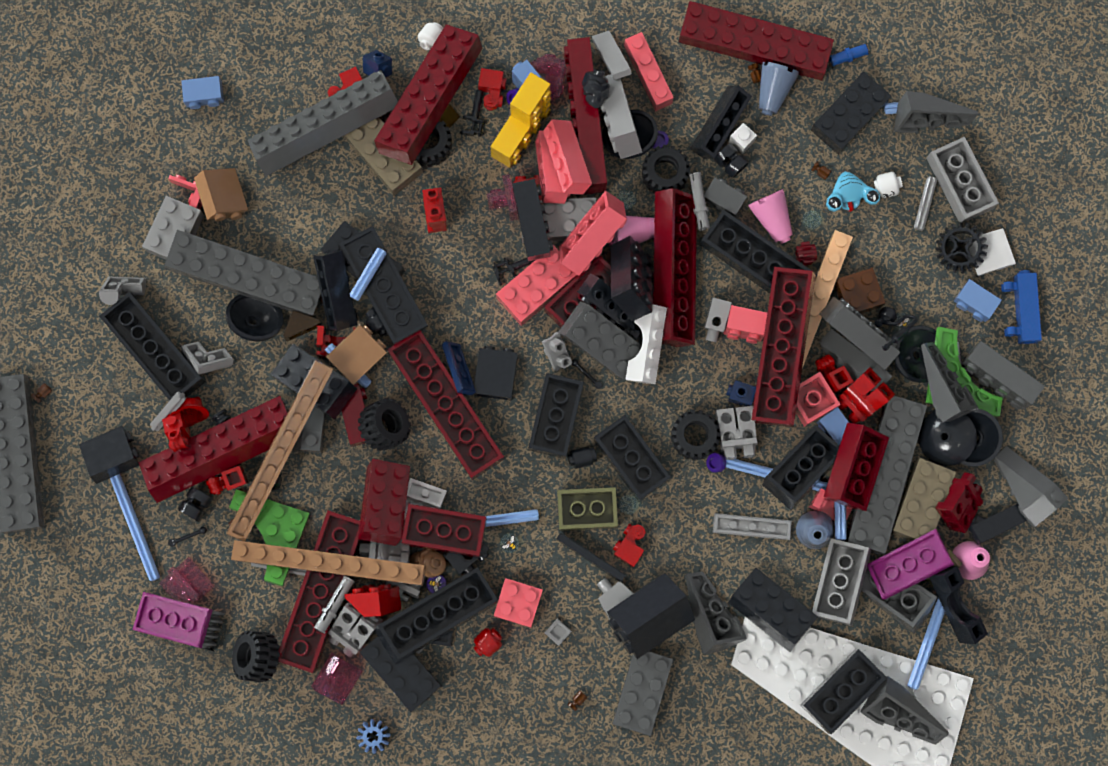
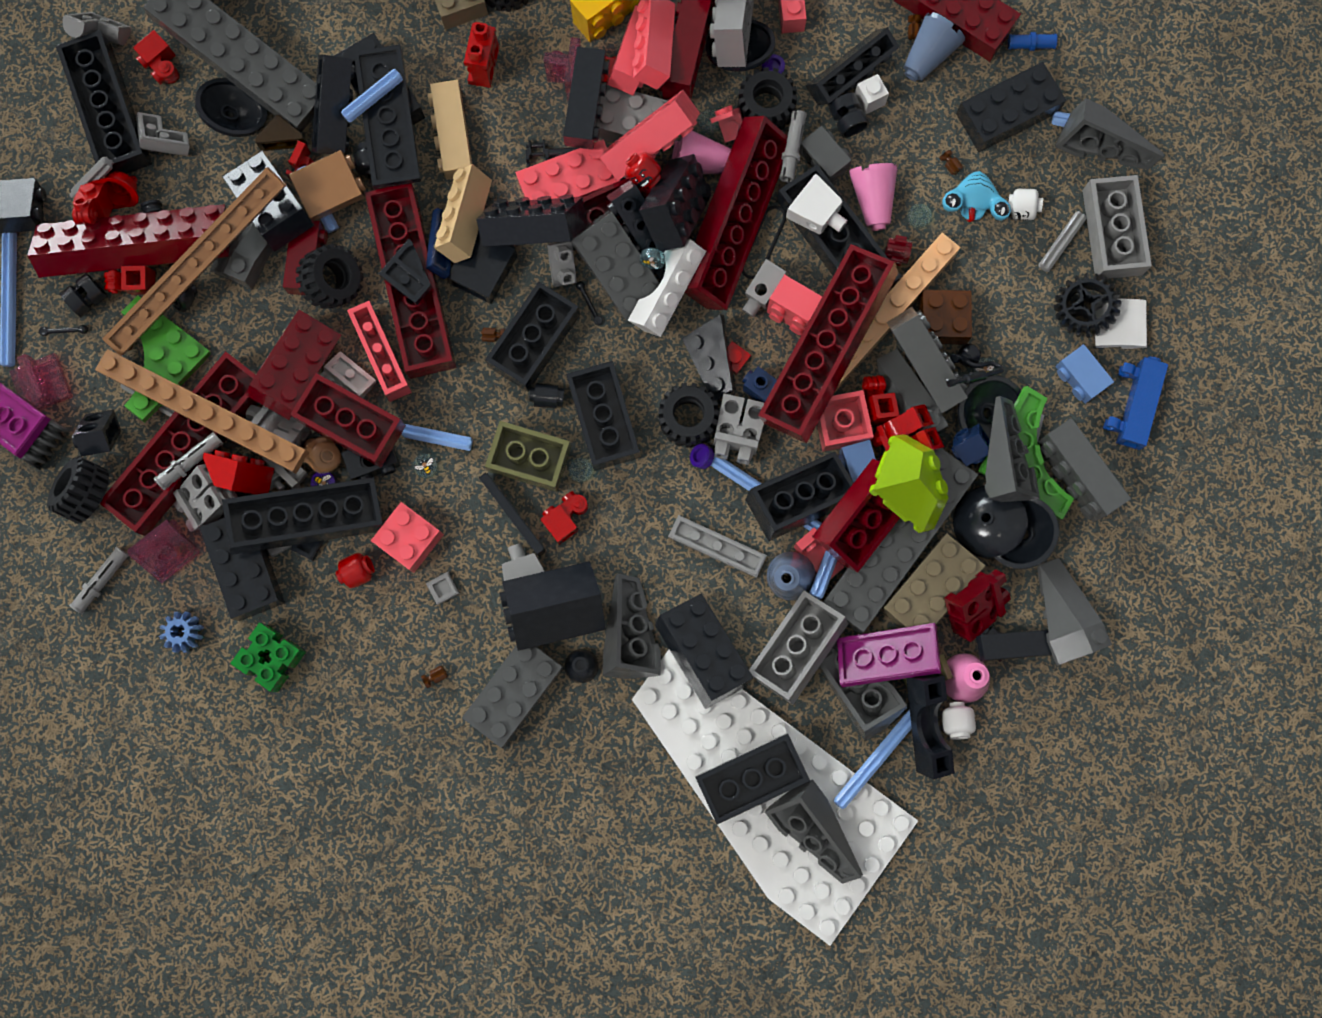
camera: 25 degrees right, 0 degrees up
(174, 294) = (157, 54): none -> red brick
(250, 608) = (96, 433): none -> black brick
(286, 743) = (99, 580): none -> light grey pin
(431, 274) = (450, 126): none -> tan brick
(443, 468) = (379, 351): none -> coral brick
(446, 402) = (407, 273): none -> black wing
(458, 724) = (283, 653): none -> green brick
(468, 340) = (464, 205): none -> tan brick
(521, 424) = (491, 334): none -> reddish brown piece
(527, 329) = (532, 221): none -> black brick
(599, 264) = (643, 170): none -> red head
(629, 327) = (652, 258): none -> clear light blue tile
(643, 197) = (729, 122): none -> coral bracket
(683, 653) = (581, 666): none -> black brick
(695, 384) = (711, 358): none -> black wing
(709, 279) = (775, 239): none -> black piece
(712, 378) = (737, 356): none -> red plate
(737, 244) = (817, 207): none -> white torso
(882, 431) = (911, 482): none -> lime wedge
(914, 385) = (971, 445): none -> dark blue brick
(977, 594) = (958, 721): none -> white head

